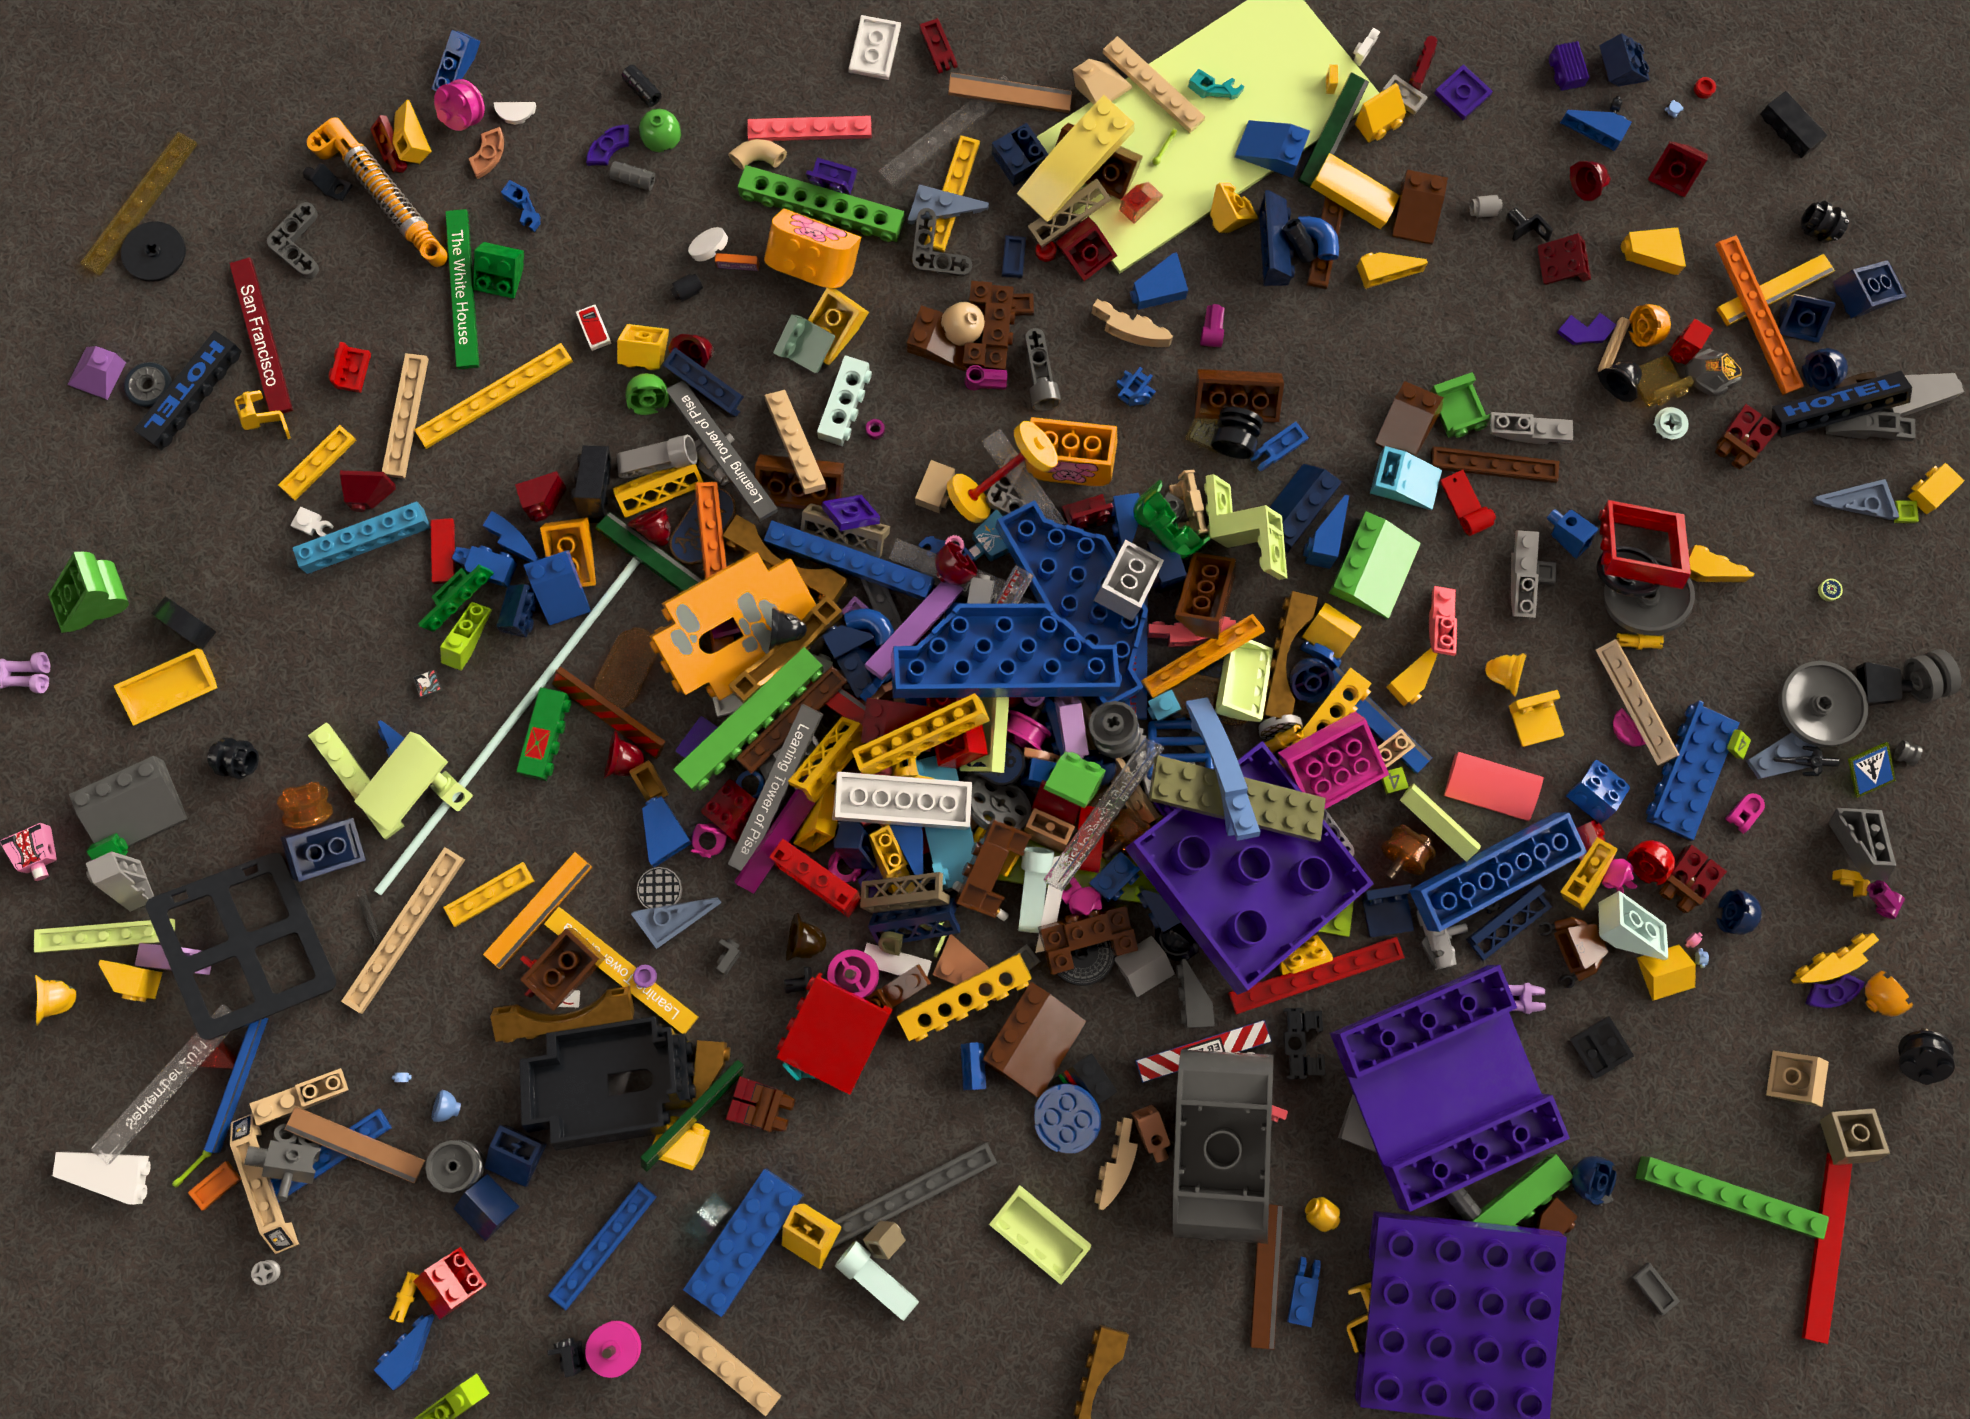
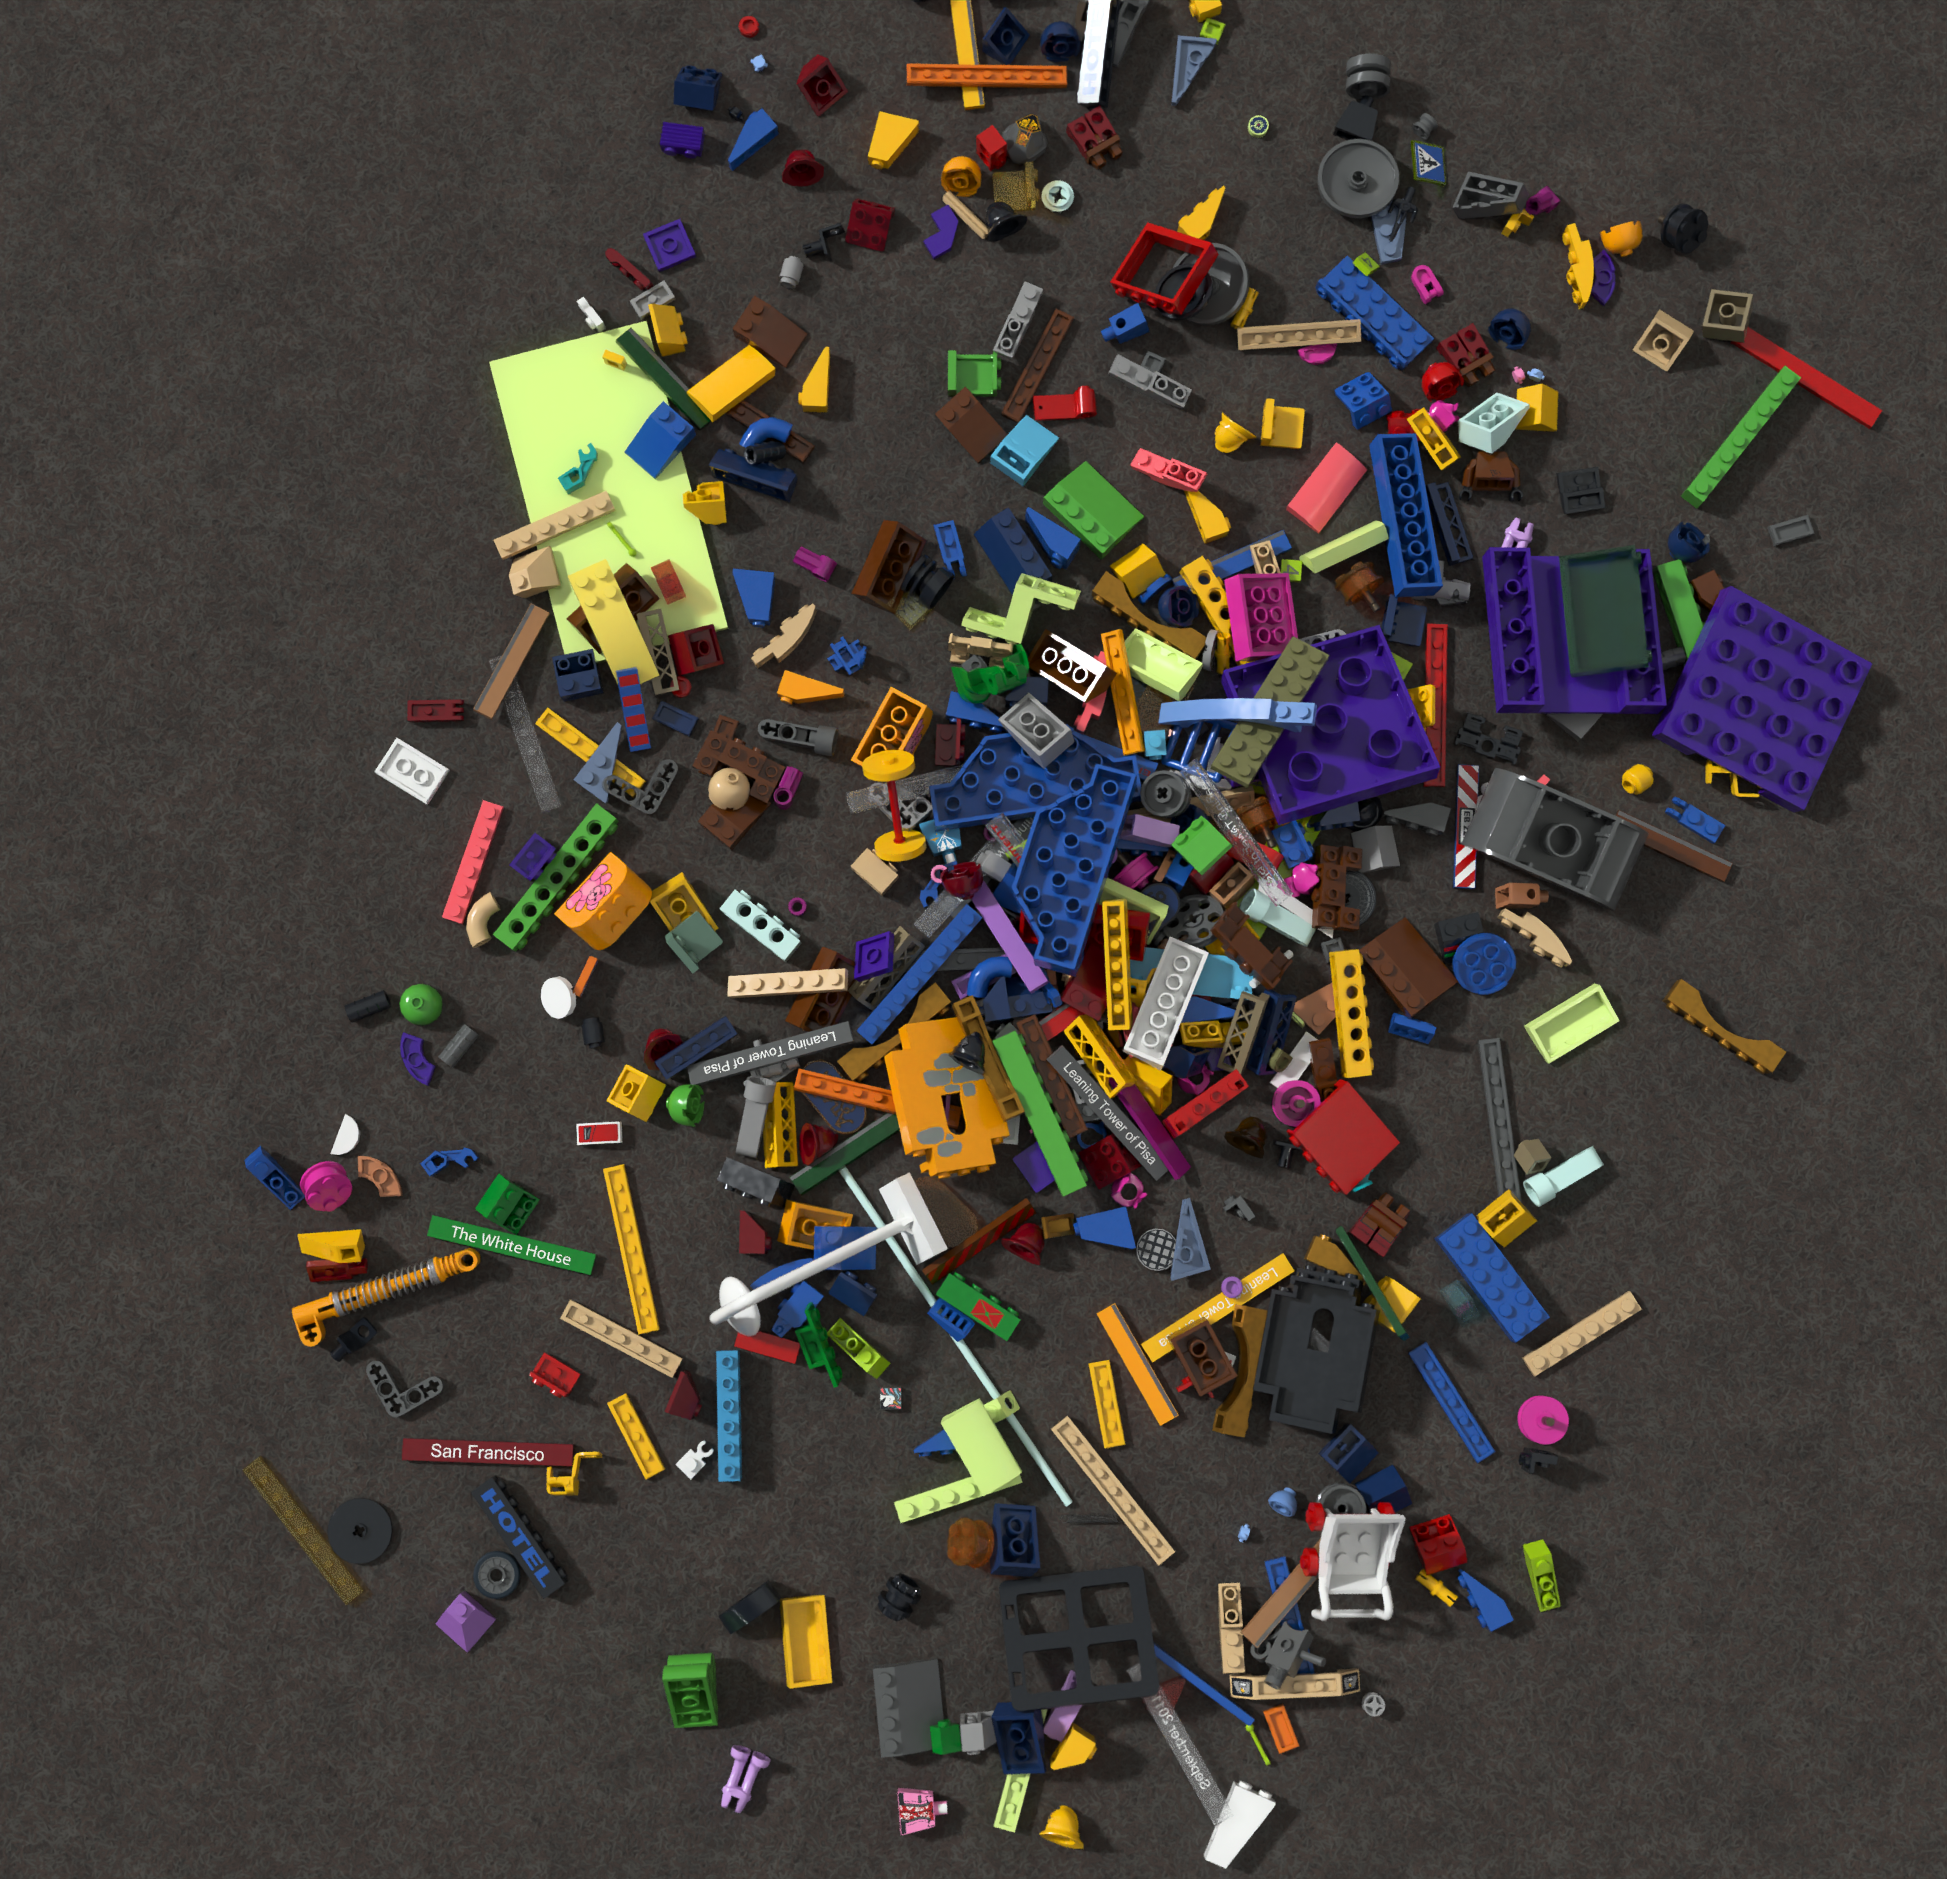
camera: 65 degrees left, 5 degrees up
(123, 922) = (1019, 1739): none -> dark blue slope
(401, 1192) = (1353, 1557): none -> white piece
(511, 716) = (953, 1329): none -> blue slope
(604, 636) = (910, 1219): none -> white piece
(1005, 210) = (633, 709): none -> tile
(1086, 360) = (803, 689): none -> light orange slope
(1482, 1109) = (1604, 611): none -> clear green windscreen

